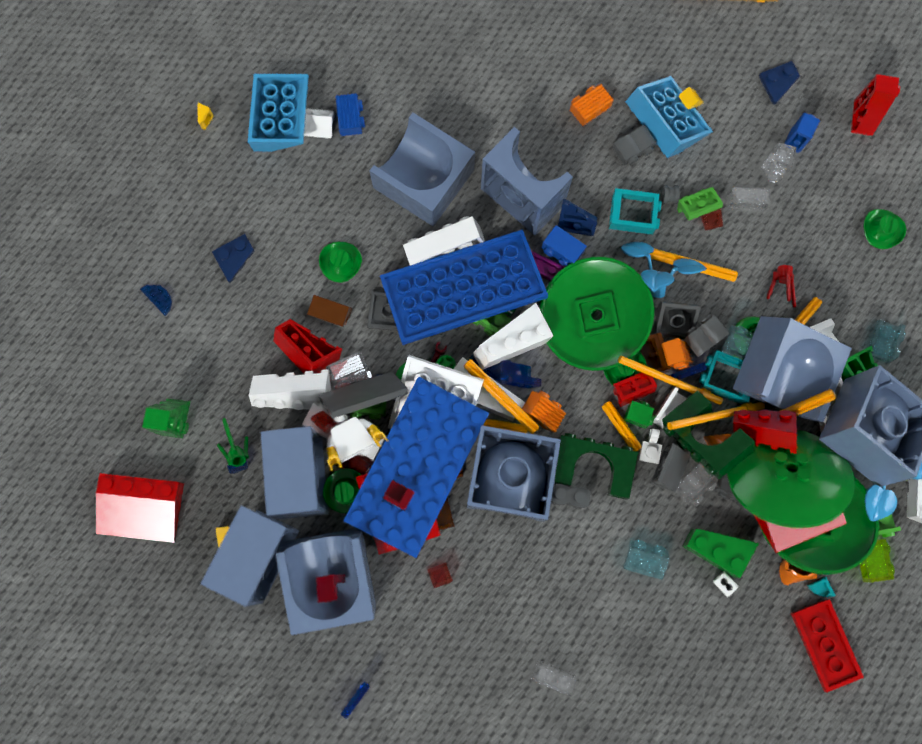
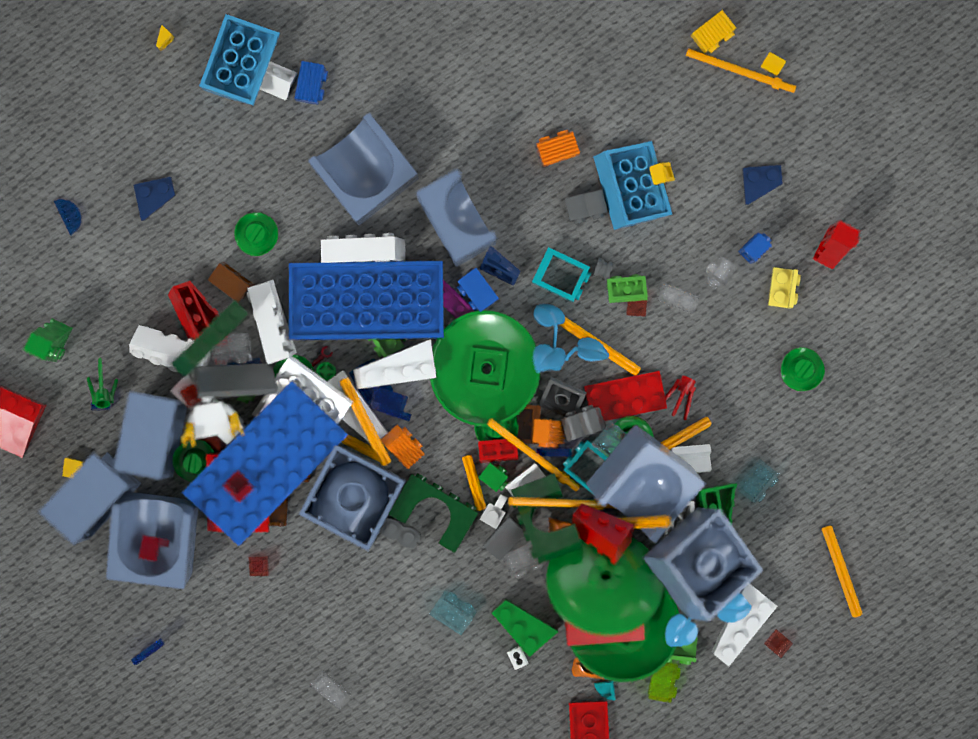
camera: 15 degrees right, 10 degrees up
(330, 349) = (209, 339): none -> dark green arch
(379, 332) = (271, 322): none -> white wedge
(737, 299) = (627, 396): none -> red plate
(838, 162) = (783, 288): none -> light yellow bracket

